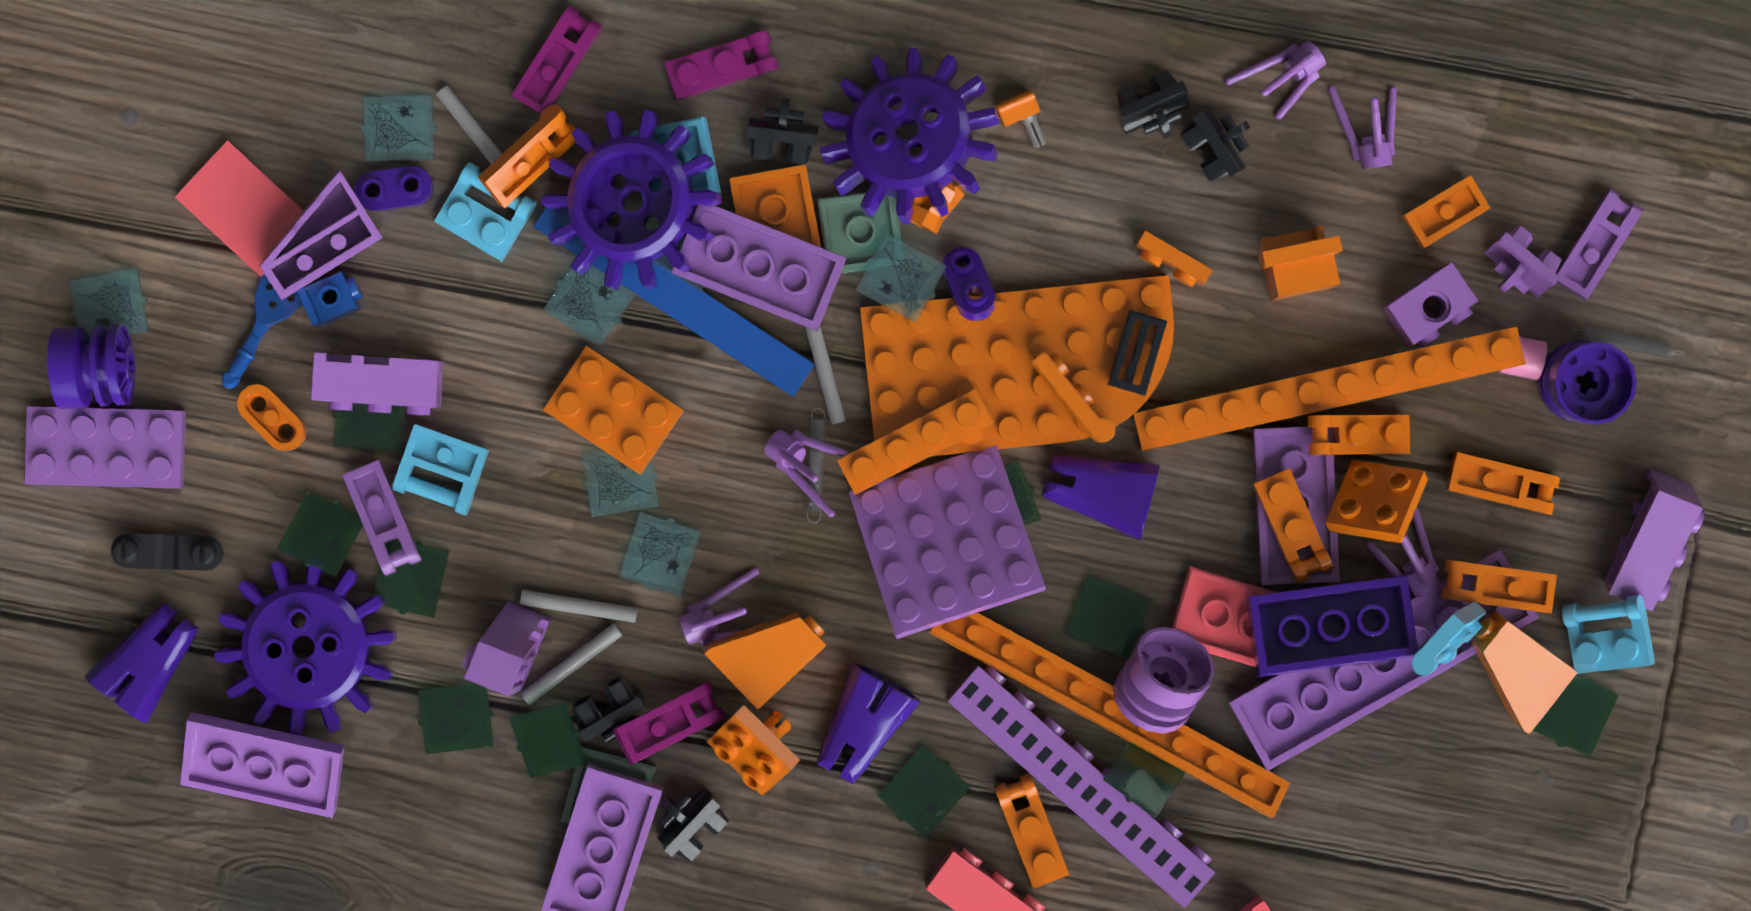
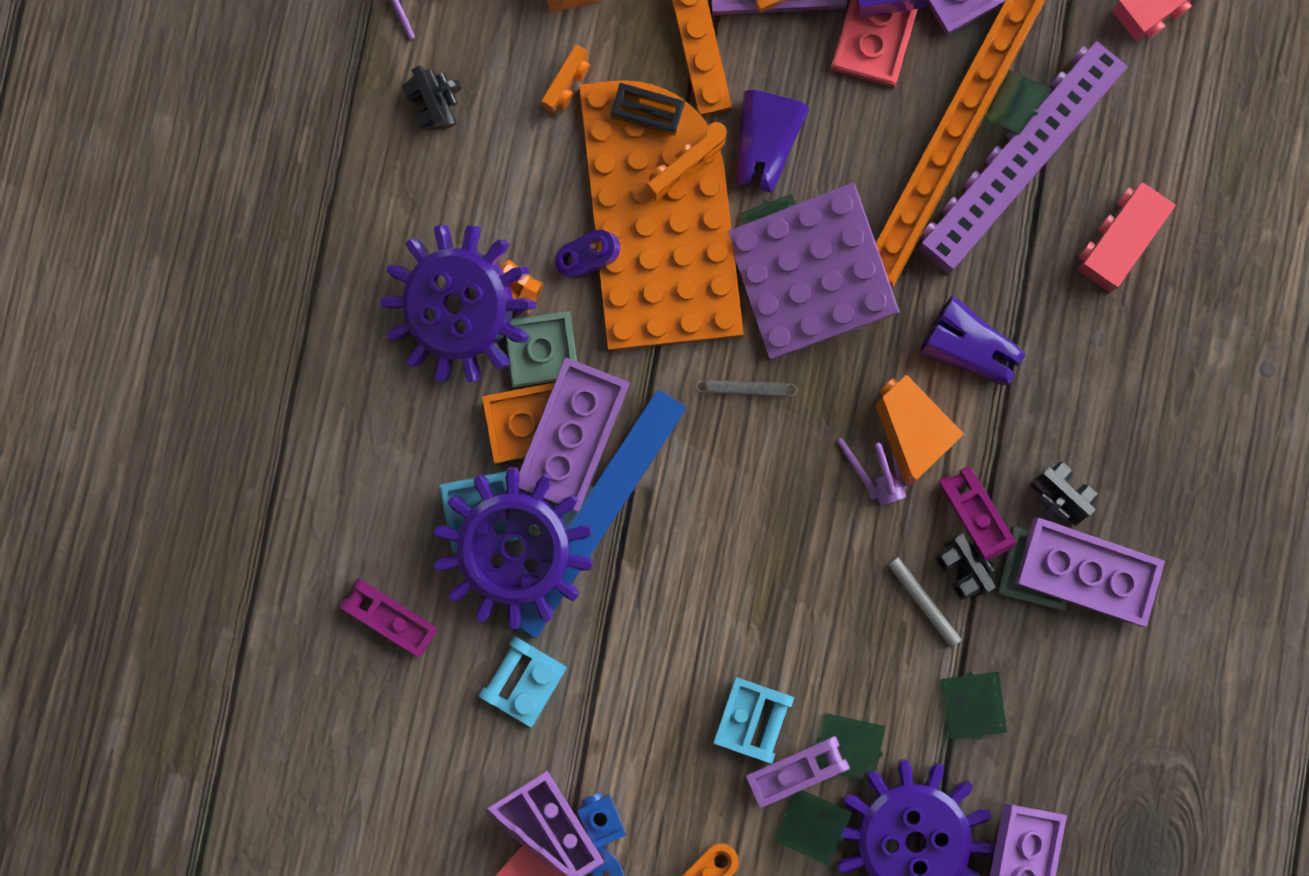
camera: 90 degrees left, 5 degrees down
(370, 429) = (707, 785): clear green piece -> none
(377, 383) = (677, 776): medium lavender wedge -> none
(393, 188) = (501, 764): dark purple plate -> none
(399, 128) = (447, 760): clear light blue piece -> none
(469, 124) = (454, 688): light grey bar -> none
(507, 649) = (920, 655): medium lavender wedge -> none
(528, 156) = (474, 640): orange plate -> none
(547, 740) = (994, 621): clear green piece -> none
(579, 606) = (873, 596): light grey bar -> none
(588, 305) = (605, 589): clear light blue piece -> none
(613, 410) = (699, 565): orange plate -> none
(616, 487) = (761, 560): clear light blue piece -> none
(660, 554) = (826, 524): clear light blue piece -> none
(720, 66) = (394, 473): magenta plate -> none
(755, 748) = (998, 436): orange plate -> none
(765, 132) = (457, 403): black hips -> none
(789, 454) = (737, 410): medium lavender plant -> none
(825, 376) = (668, 379): light grey bar -> none
(901, 278) = (582, 312): clear light blue piece -> none
(915, 441) = (726, 298): orange plate -> none
(924, 791) = (1029, 294): clear green piece -> none
(1022, 108) = (433, 209): orange piece -> none
(1032, 832) = (1063, 200): orange plate -> none
(1108, 617) = (875, 136): clear green piece -> none
(1163, 680) = (932, 82): medium lavender wheel -> none
(1208, 130) = (480, 37): black hips -> none

